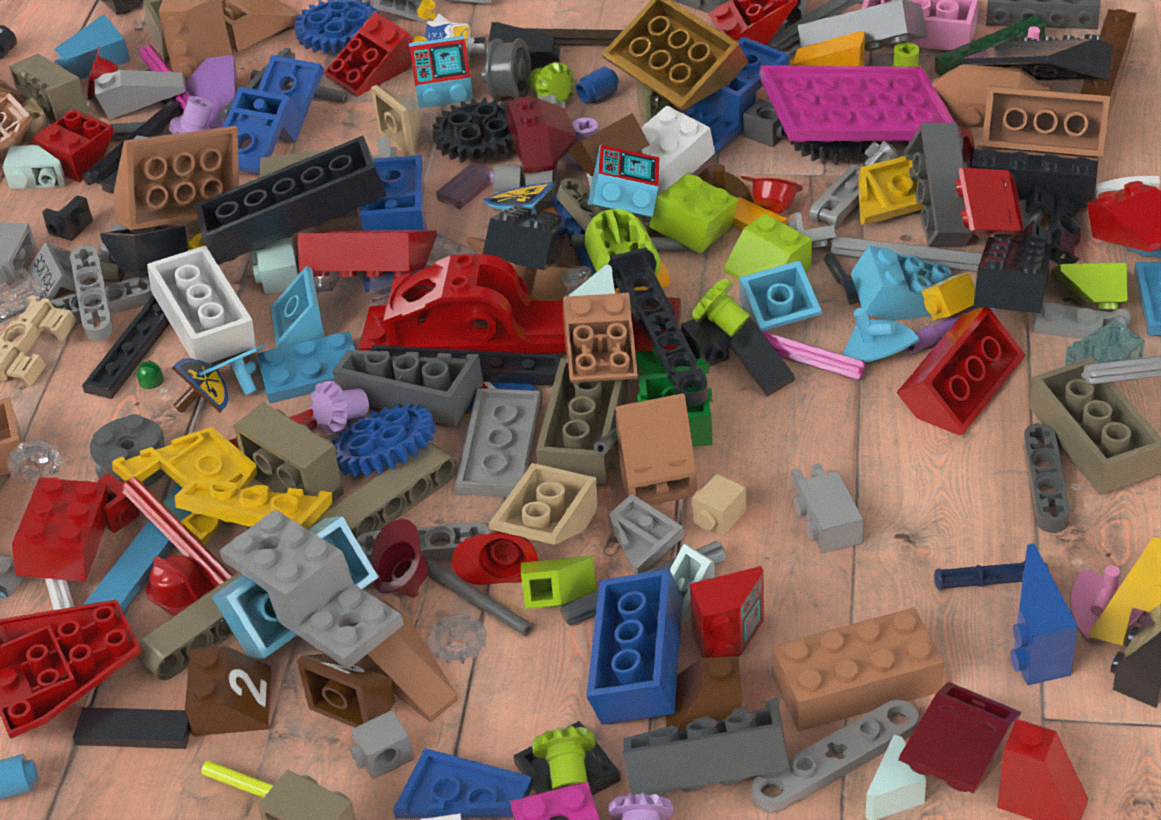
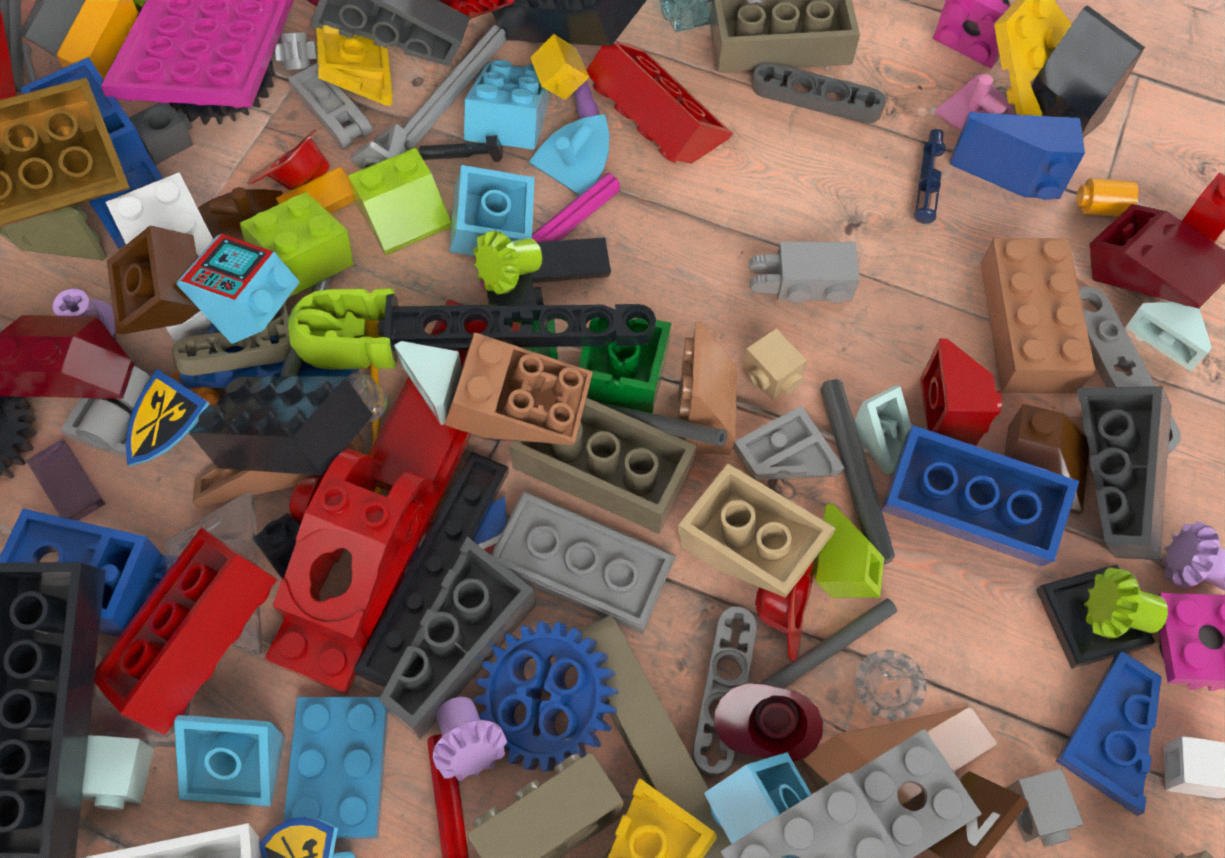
camera: 80 degrees left, 20 degrees up
(1036, 704) = (1106, 196): none -> light orange brick

